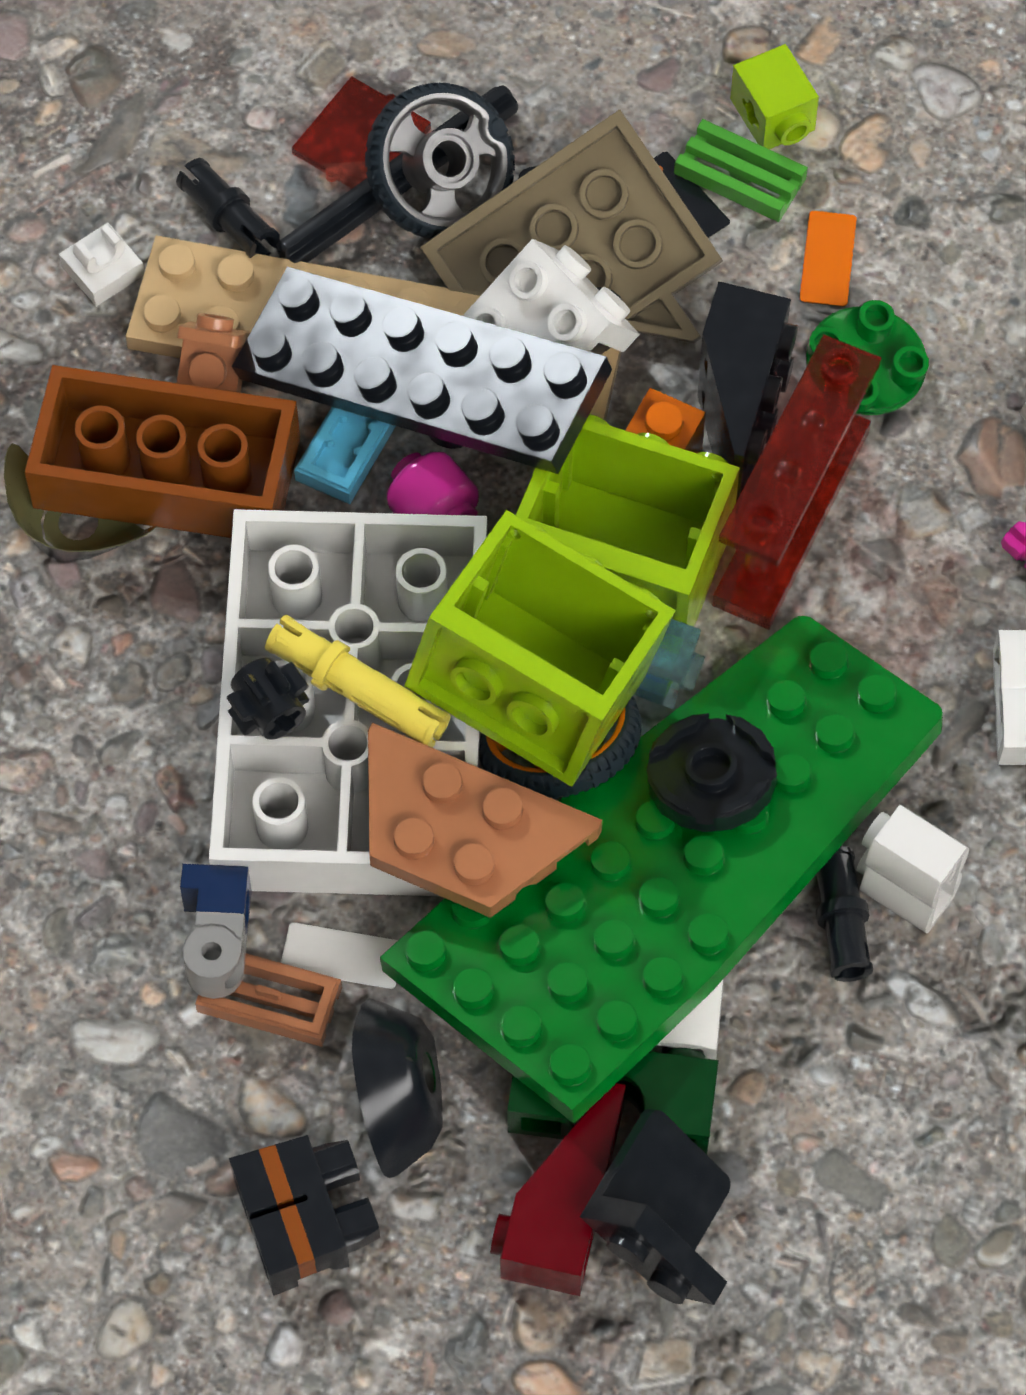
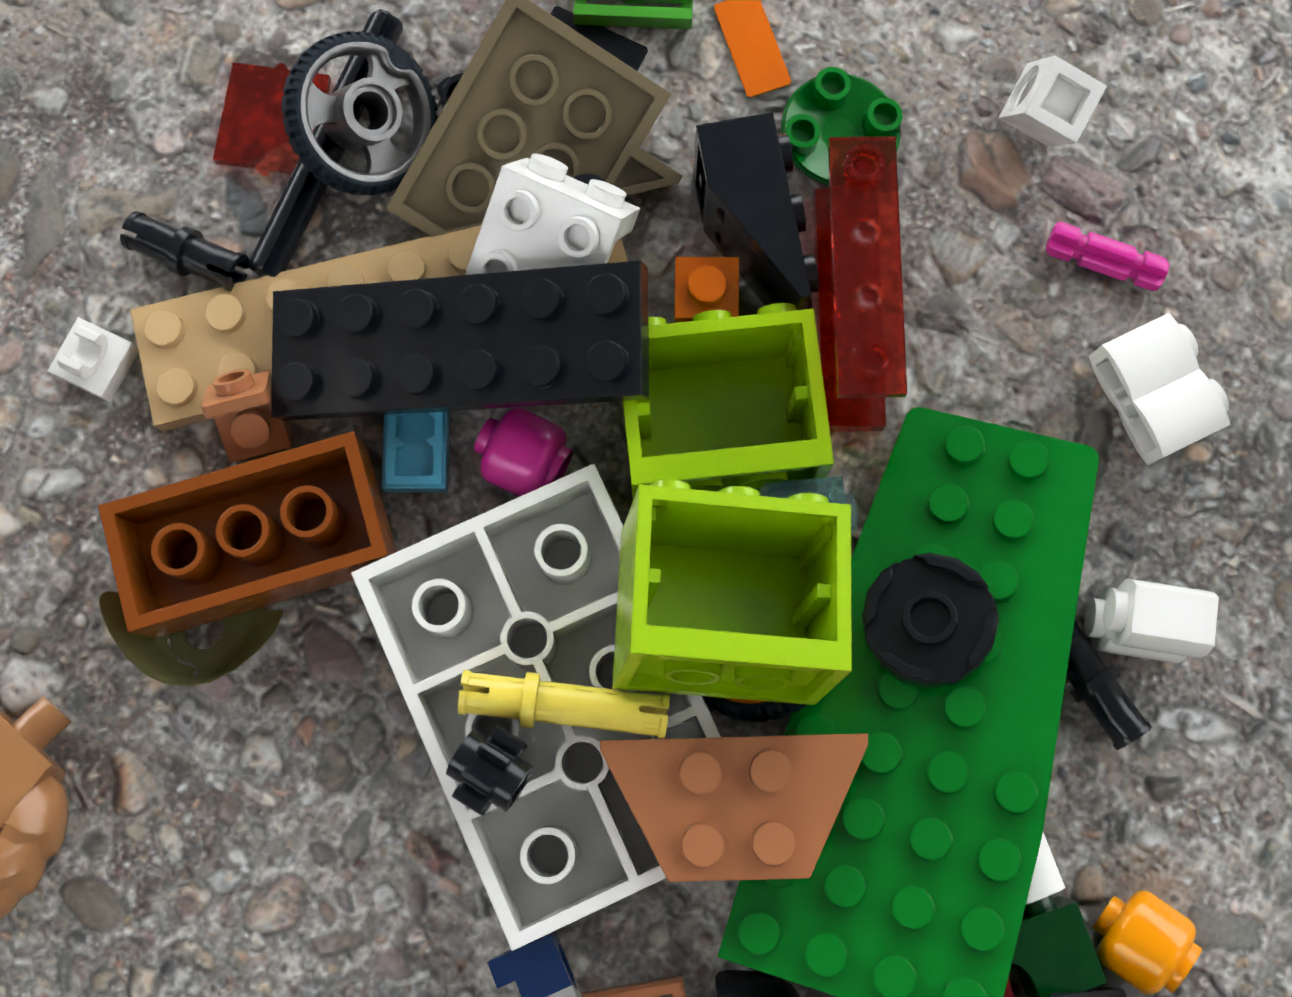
camera: 25 degrees left, 15 degrees up
(338, 954) = (665, 943): white sticker -> none
(768, 1138) = (1146, 942): none -> light orange head

